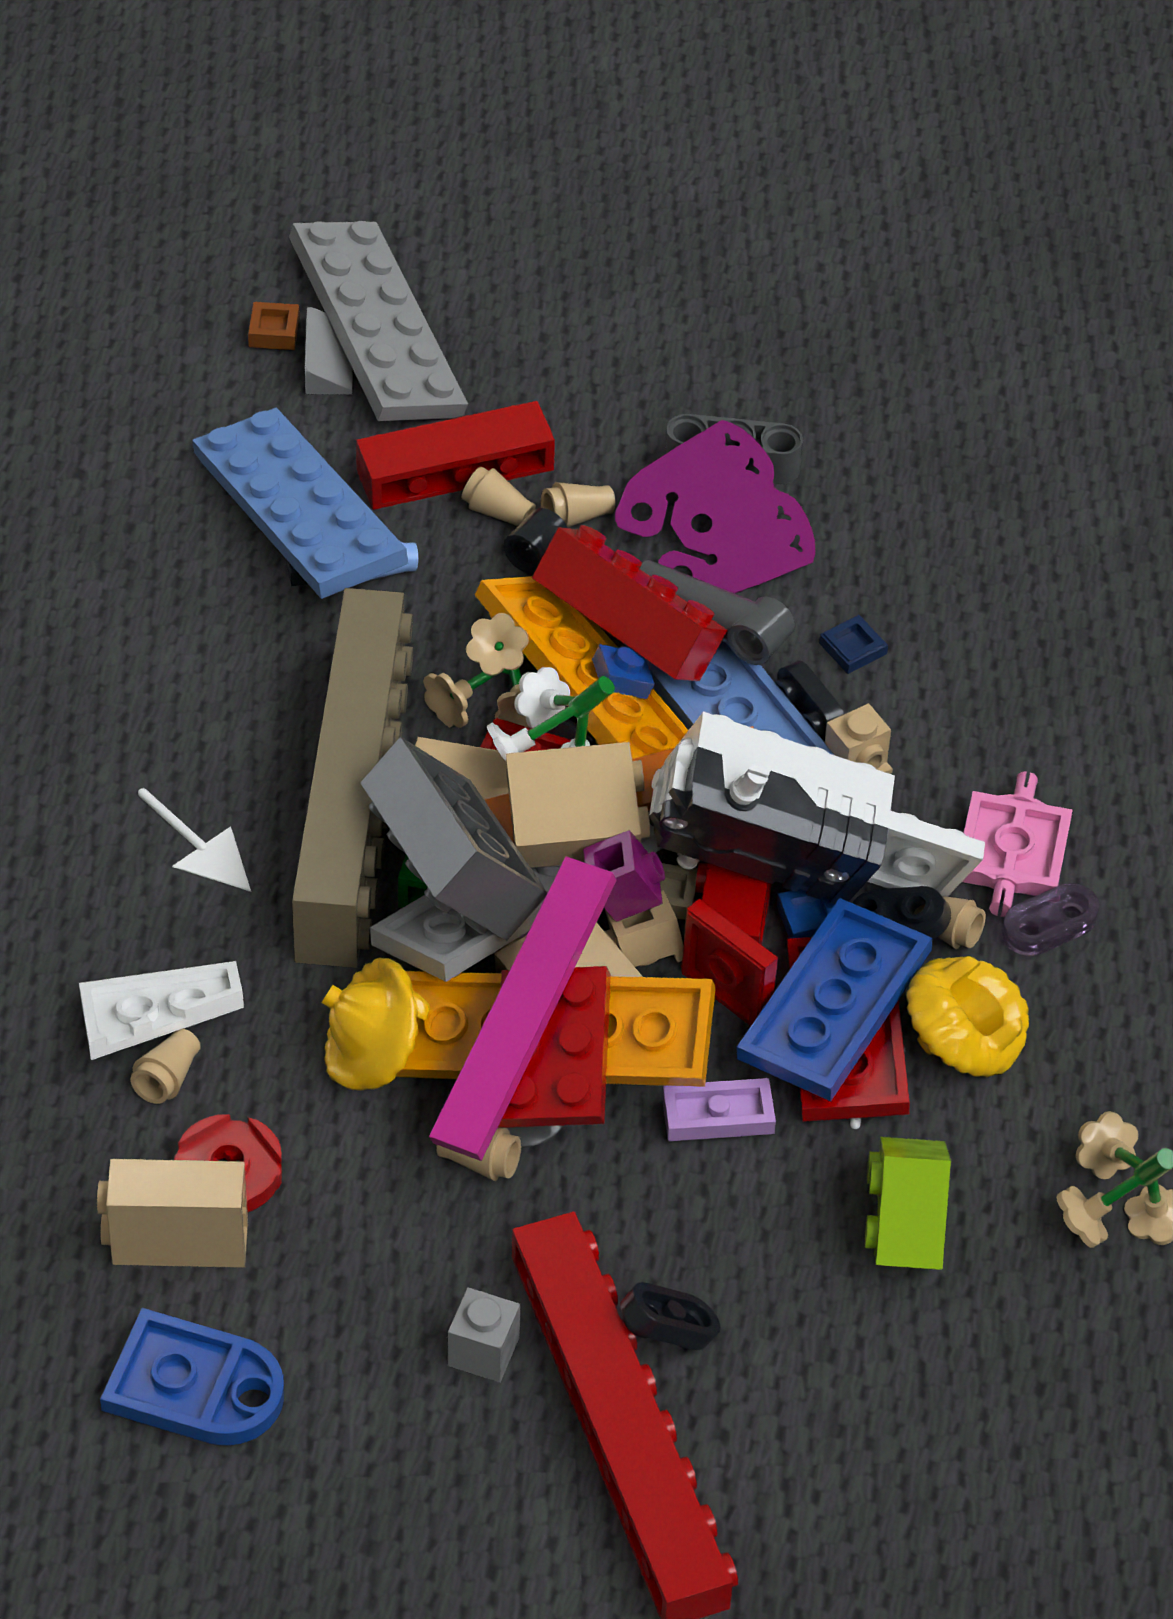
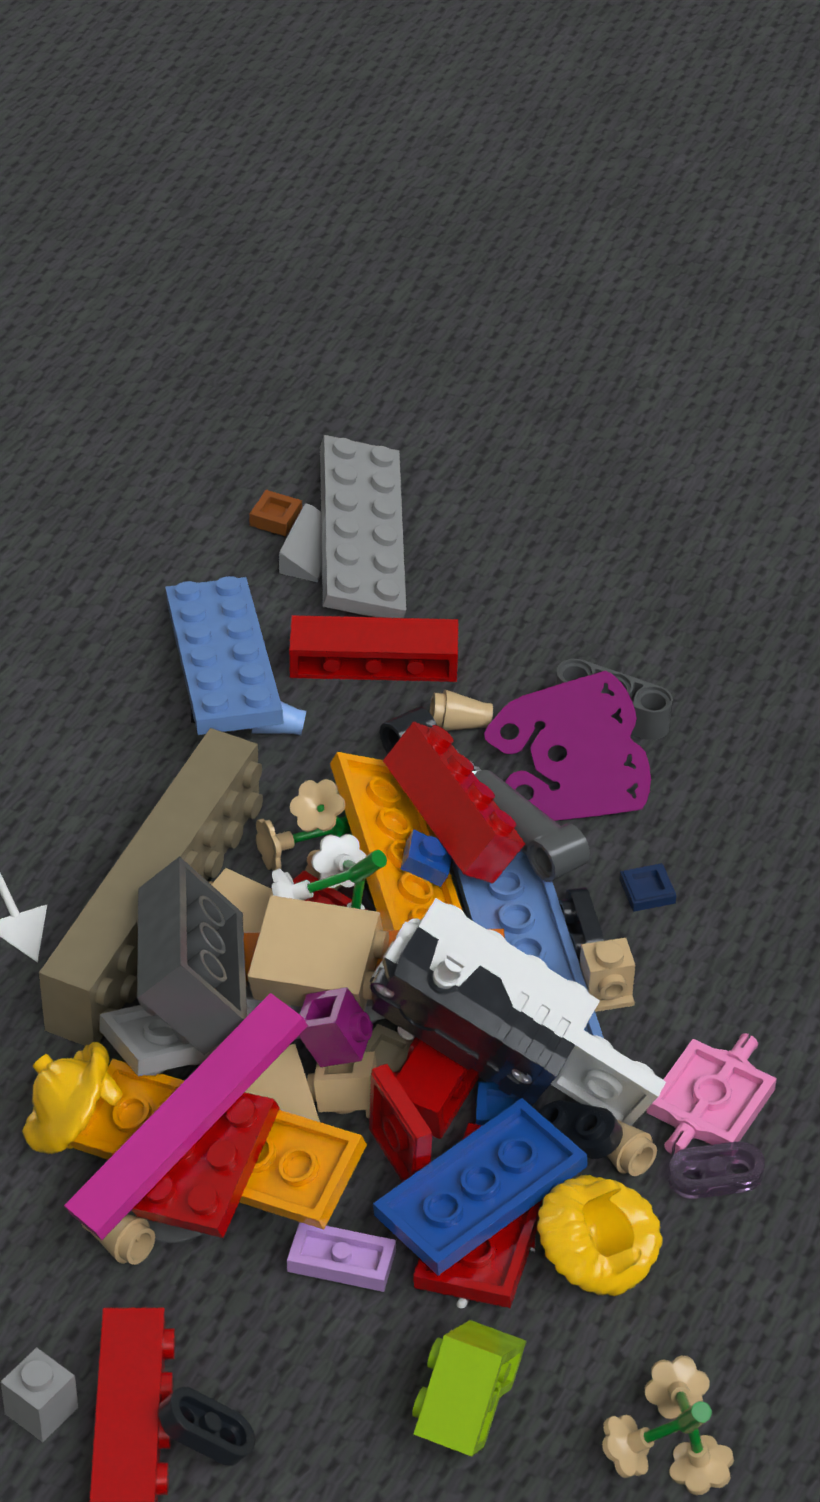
camera: 20 degrees right, 5 degrees down
(495, 497) = (391, 688): tan cone -> none

